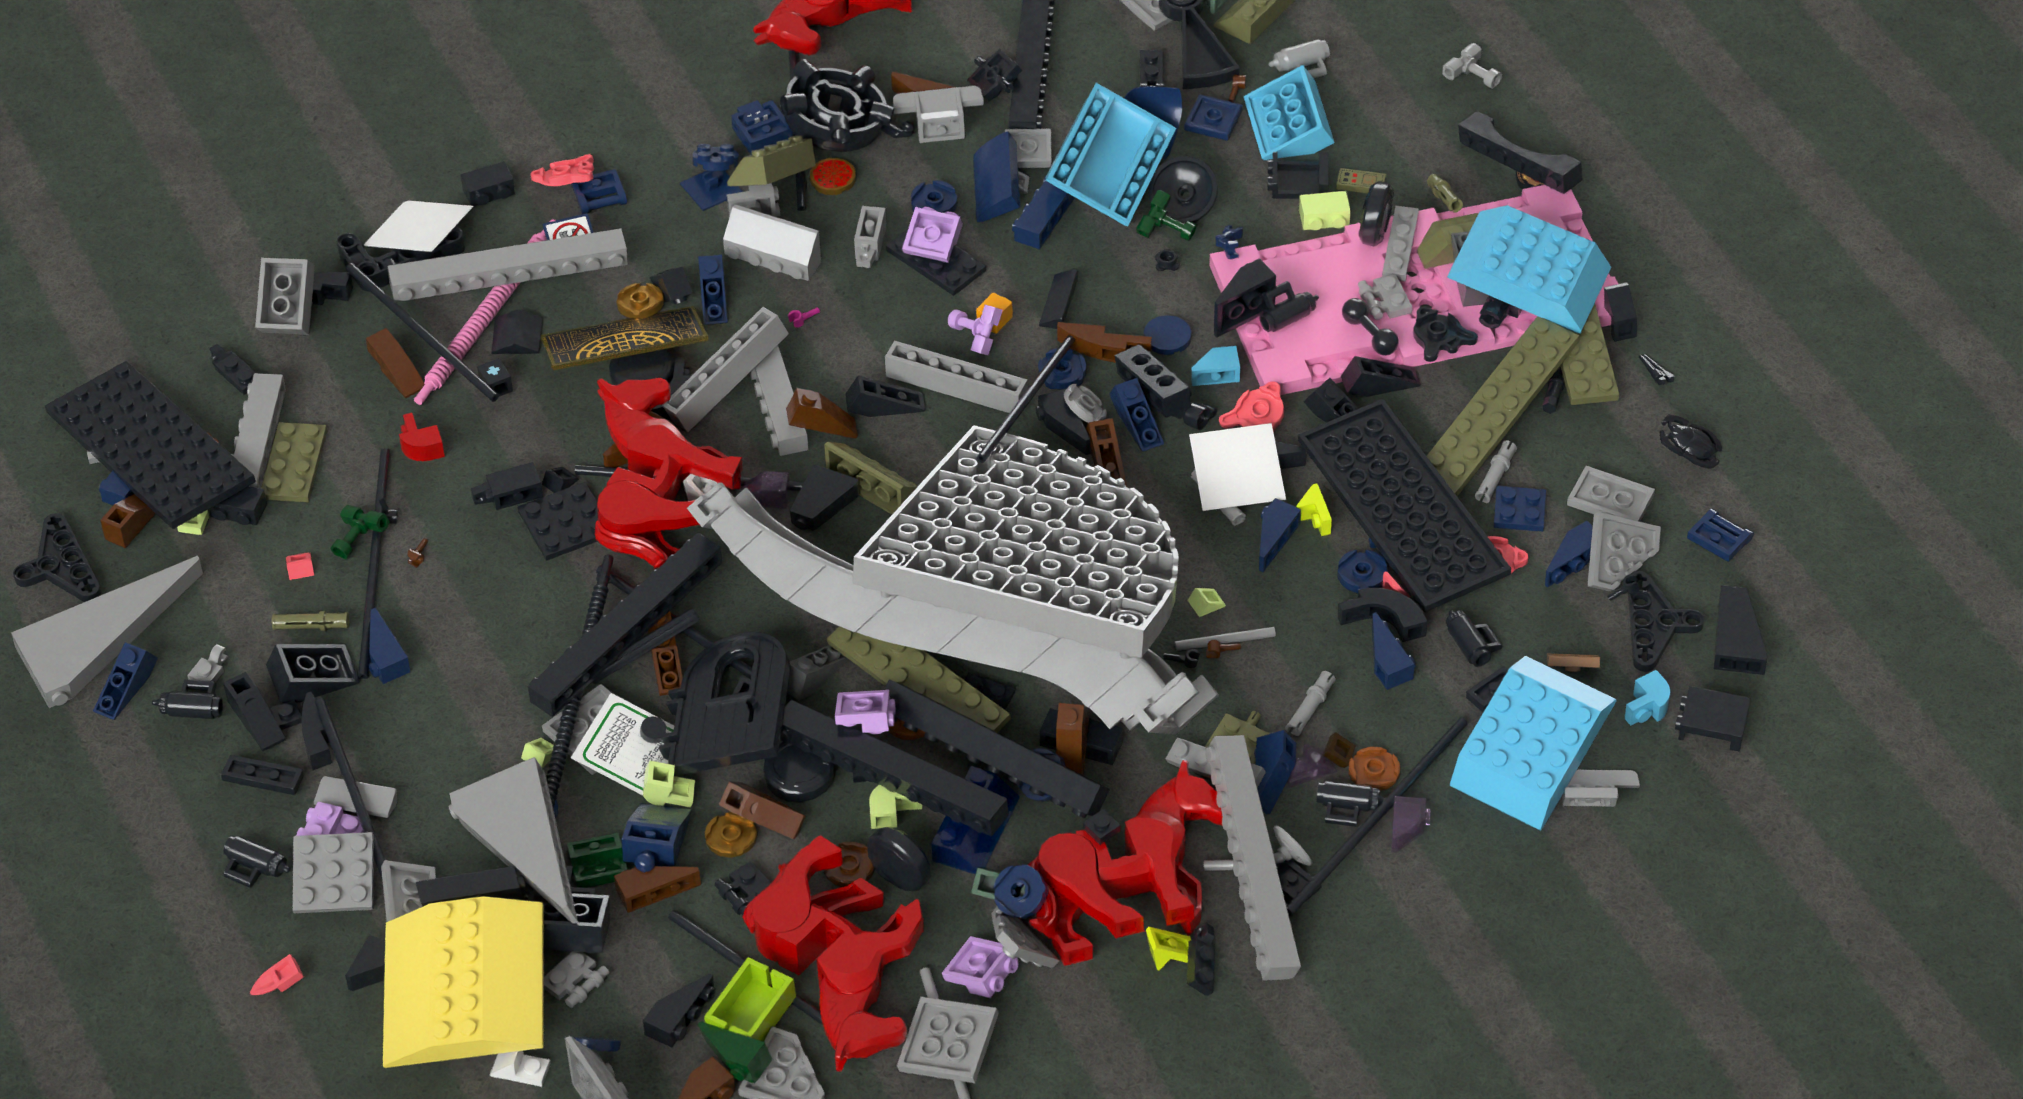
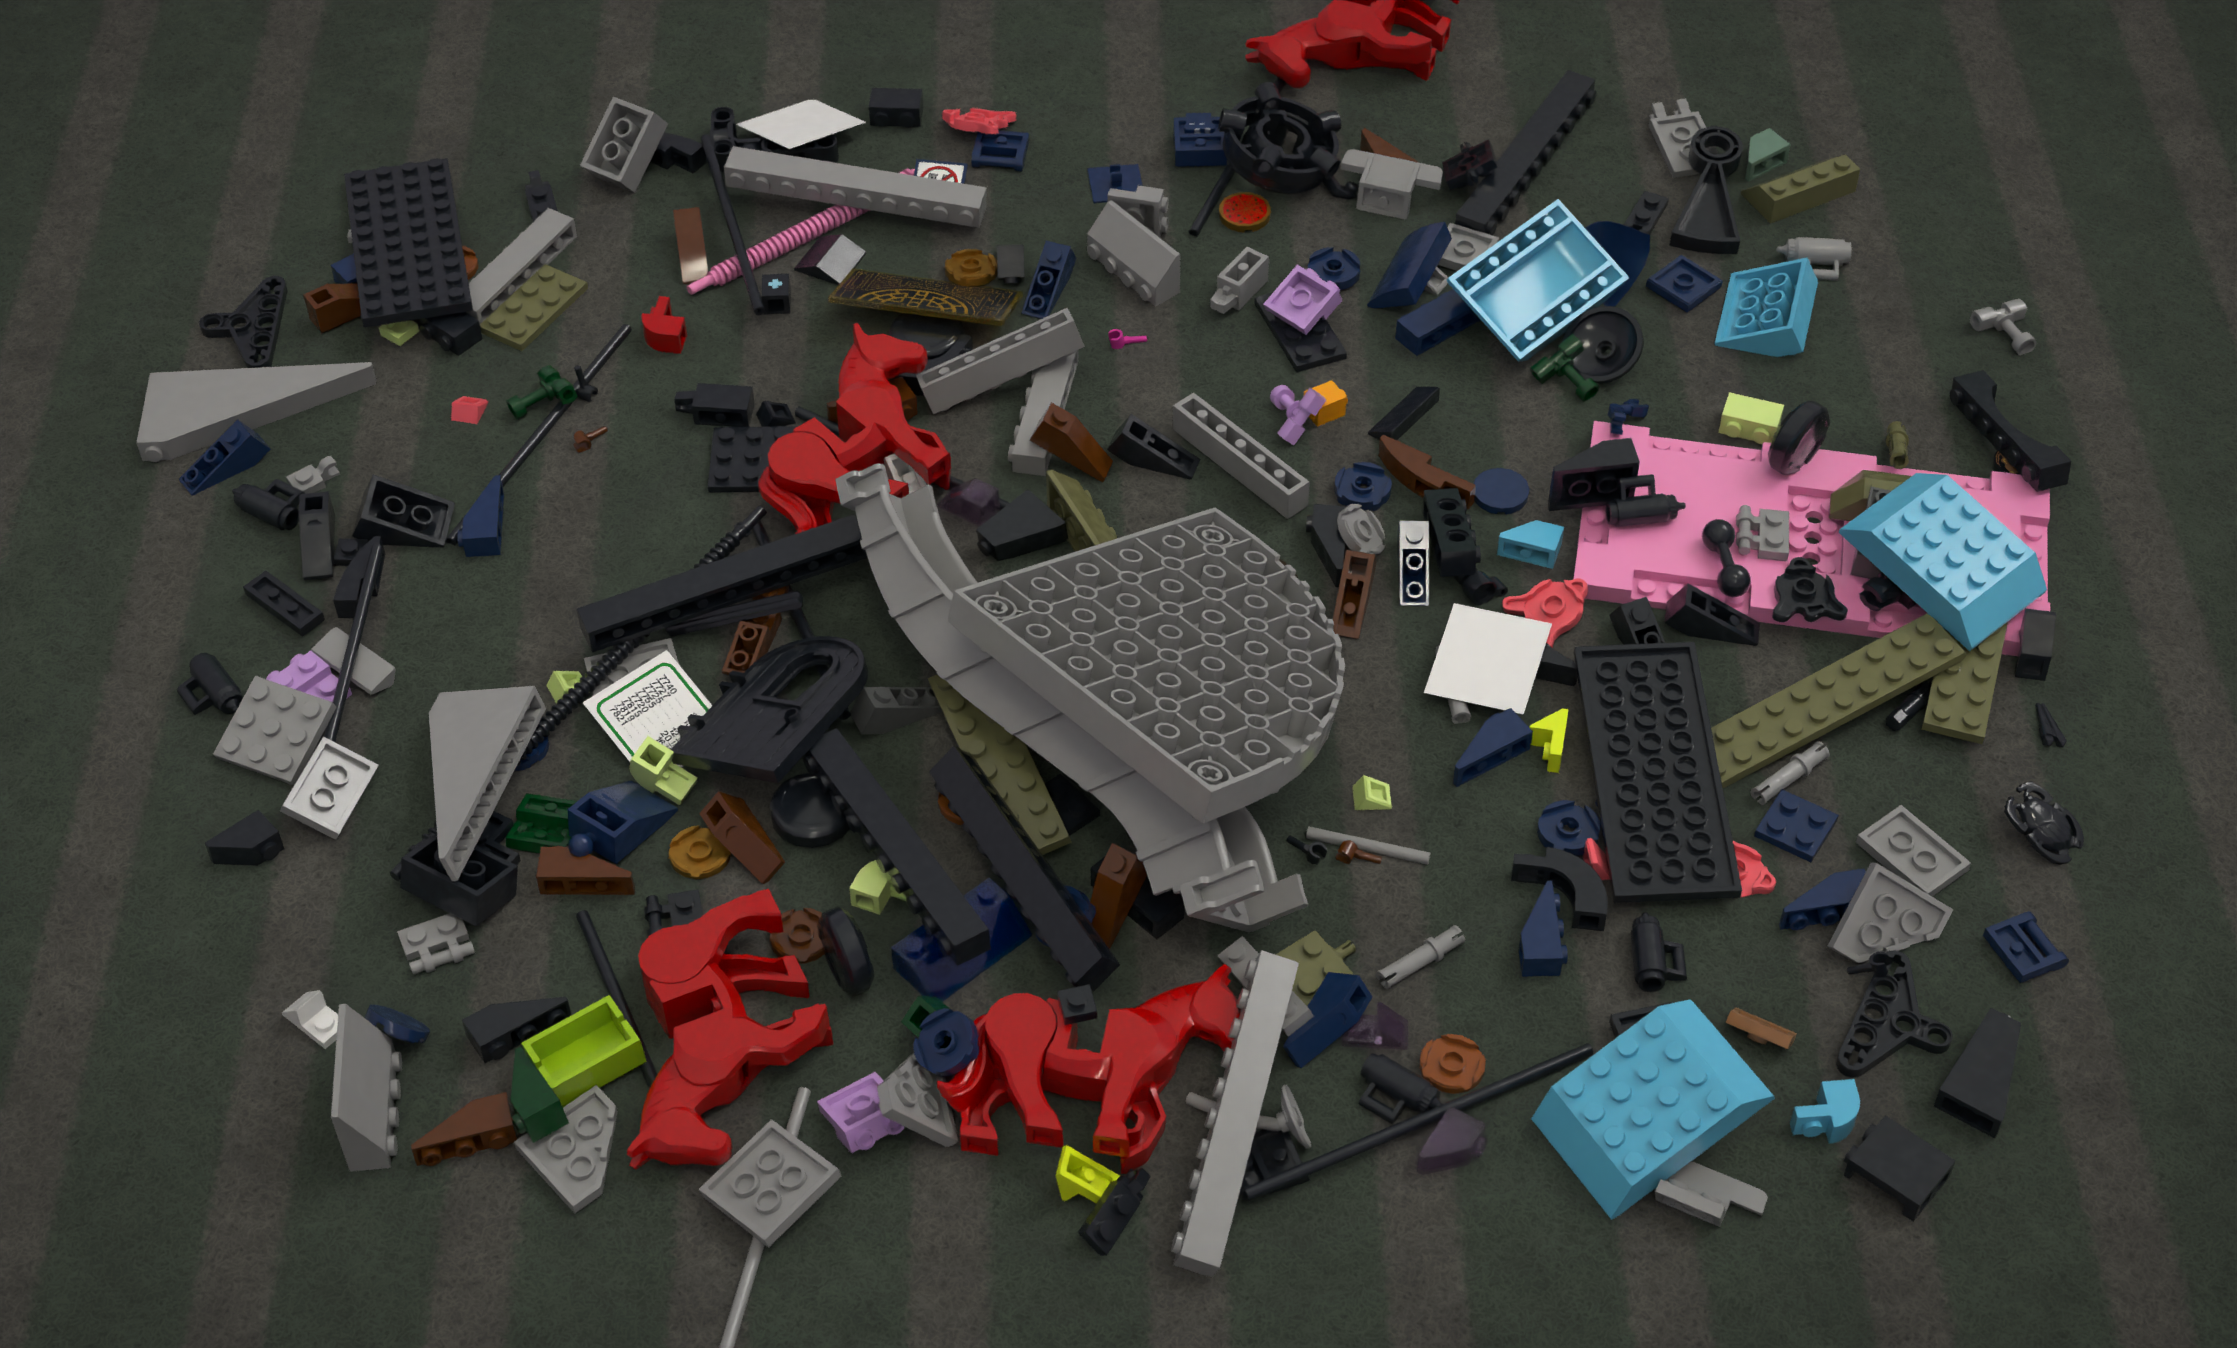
camera: 25 degrees right, 0 degrees up
(279, 976) = (150, 818): coral plate -> none
(311, 621) = (447, 470): olive pin -> none
(463, 981) = (307, 899): light yellow slope -> none
(491, 883) = (371, 807): black slope -> none
(652, 729) = (687, 703): black tile -> none
(715, 157) = (1134, 154): dark blue plate -> none
(774, 162) = (1179, 172): olive slope -> none
(870, 708) = (905, 769): lavender plate -> none
(1025, 399) = (1287, 500): black piece -> none
(1166, 260) = (1546, 412): black plate -> none
(1238, 83) = (1732, 257): reddish brown hand -> none
(1298, 177) = (1742, 374): black panel -> none
(1339, 750) = (1421, 1025): dark brown tile -> none
(1358, 180) = (1800, 393): olive tile -> none
(1400, 242) = (1815, 480): light grey plate -> none

